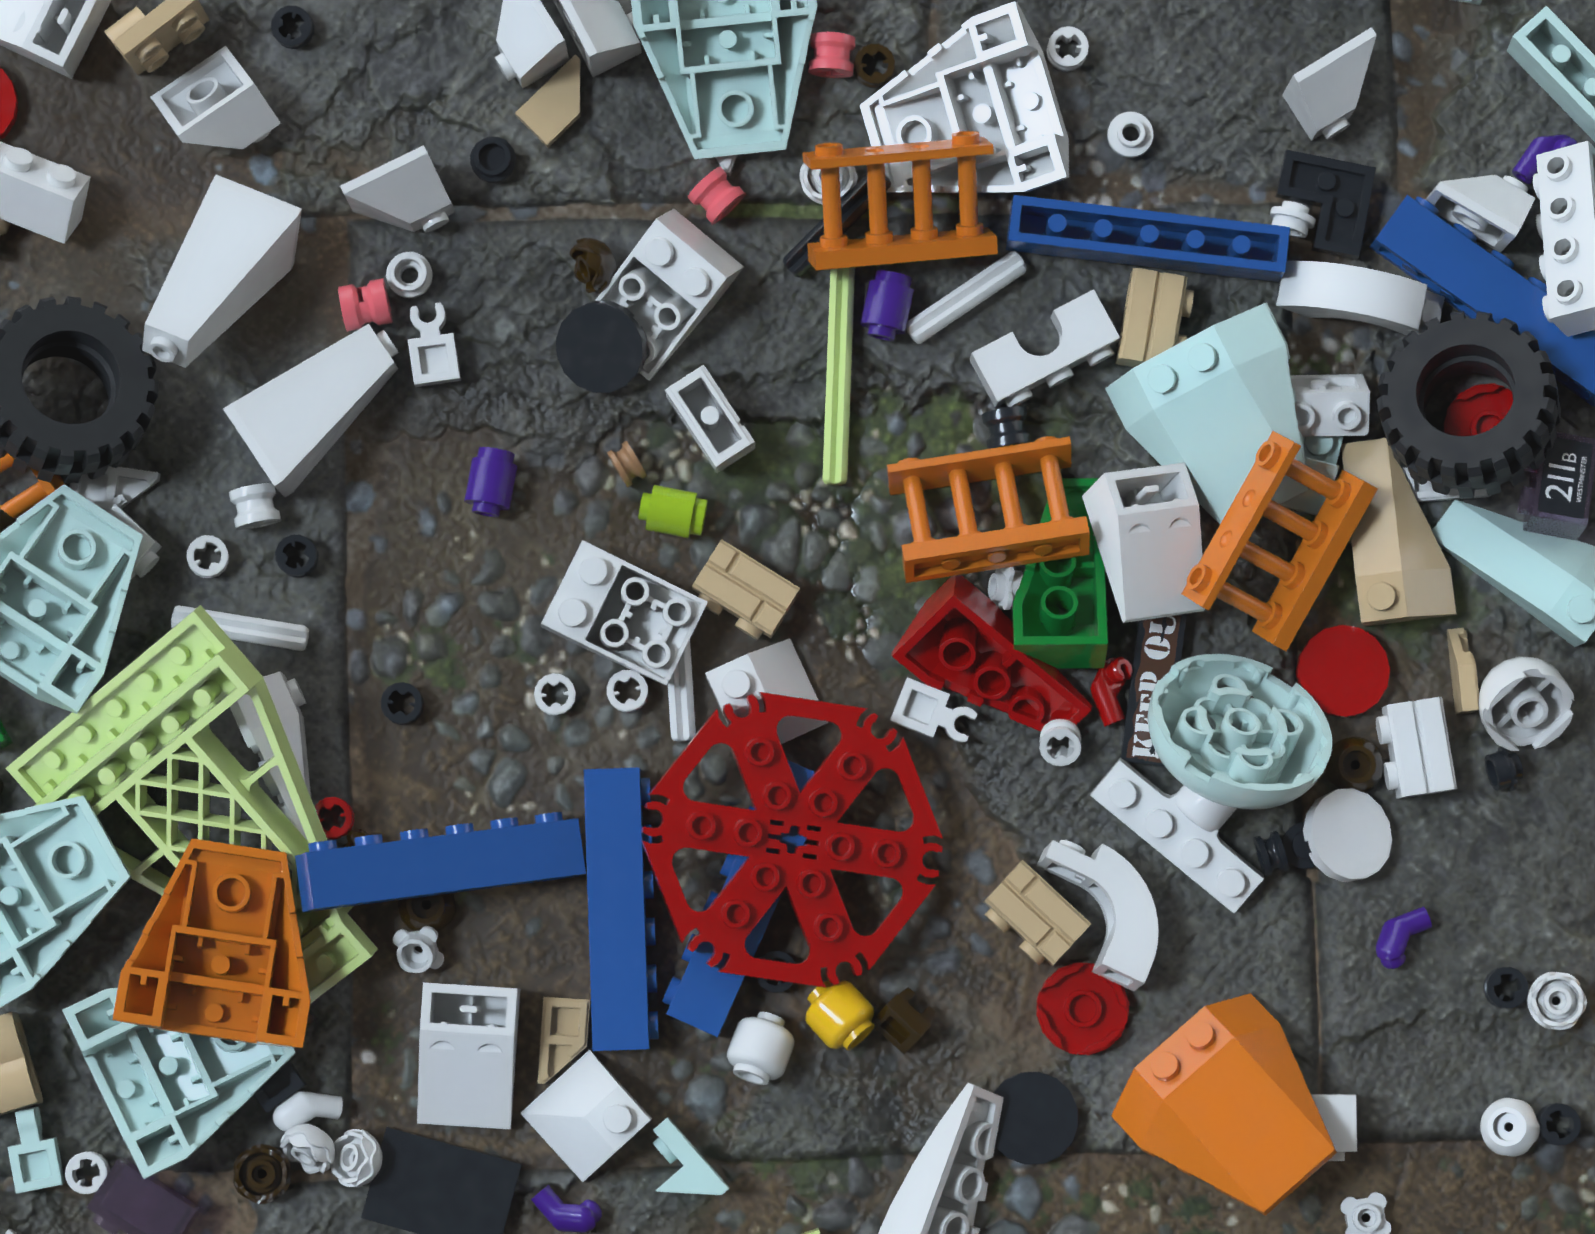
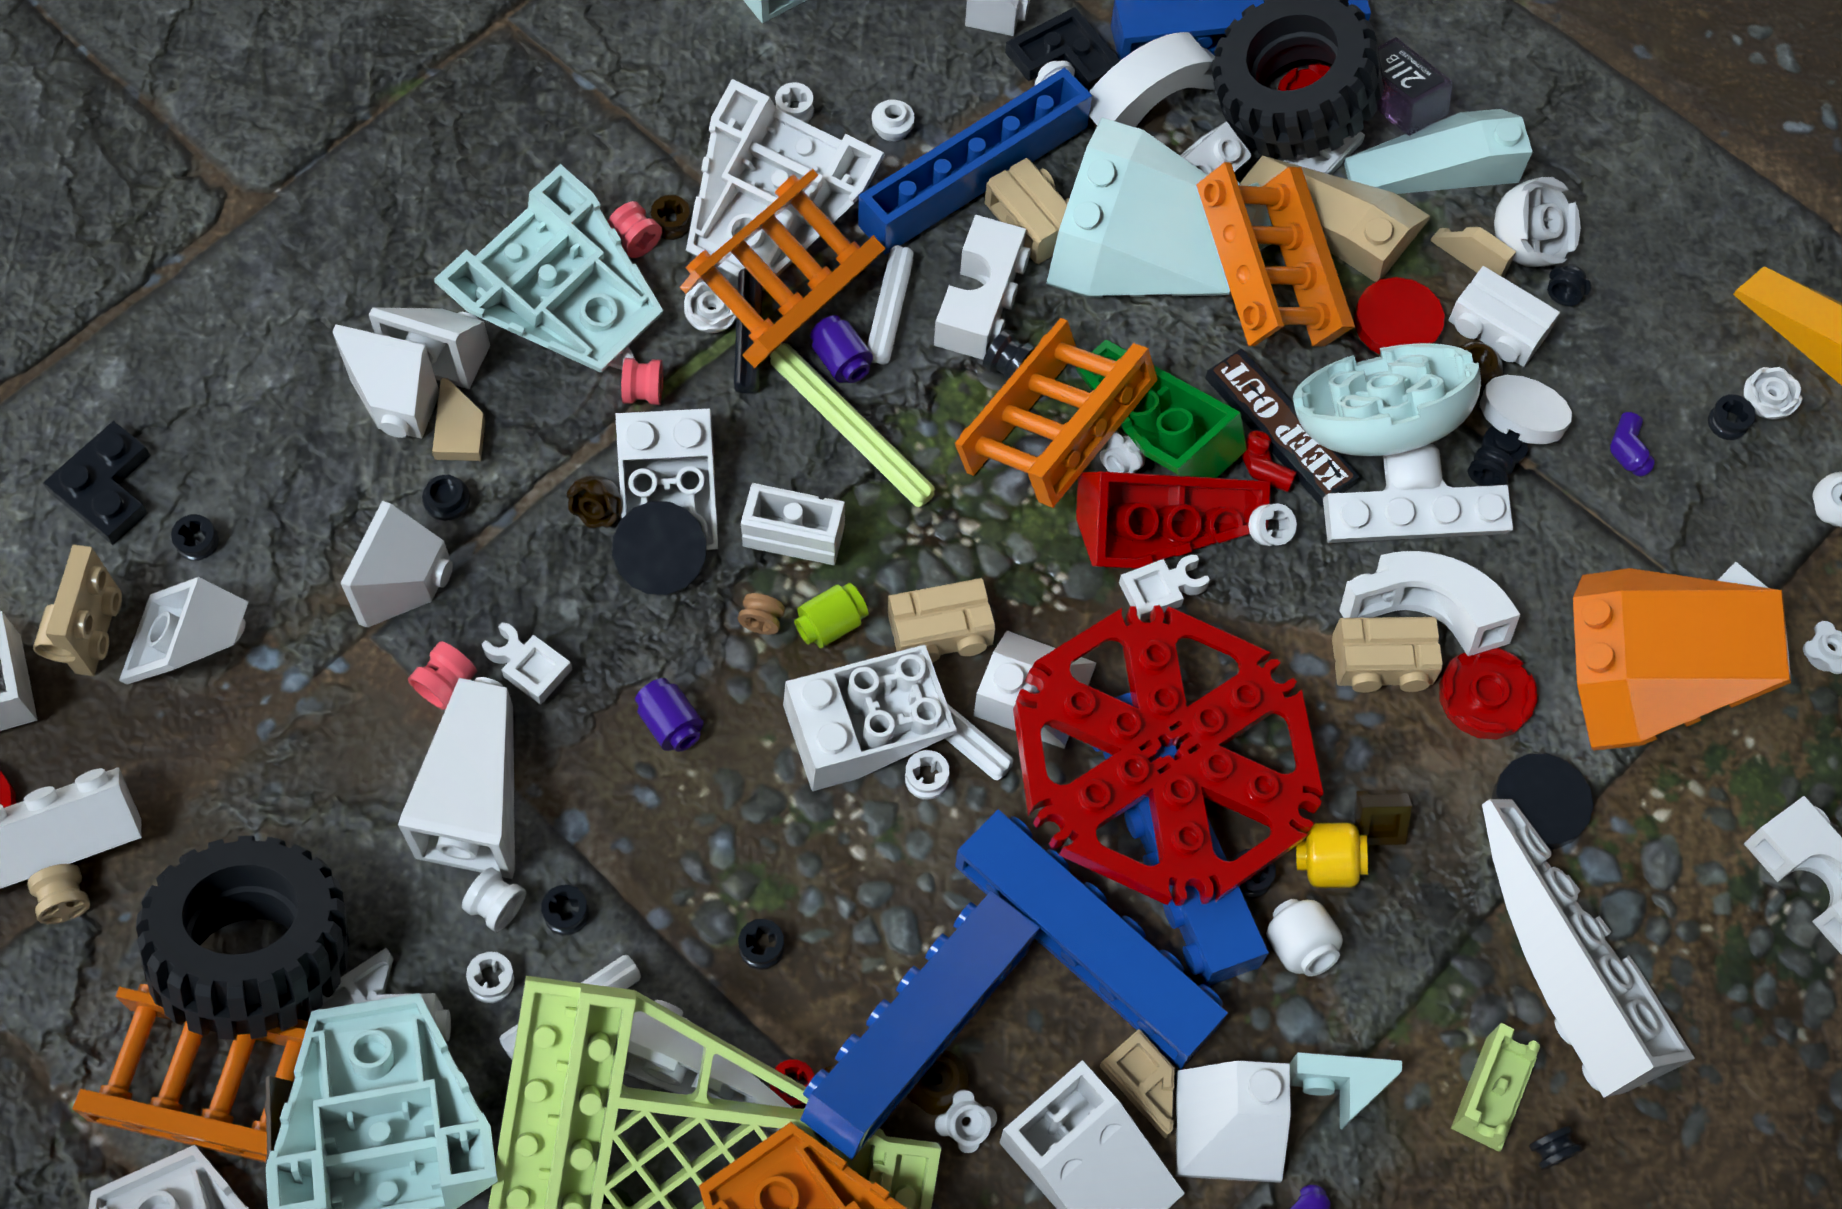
camera: 45 degrees left, 20 degrees down
(225, 265) = (297, 729): white slope -> none
(402, 262) = (454, 617): white plate -> none
(554, 679) = (860, 821): white bush -> none
(1147, 538) = (1186, 330): white slope -> none

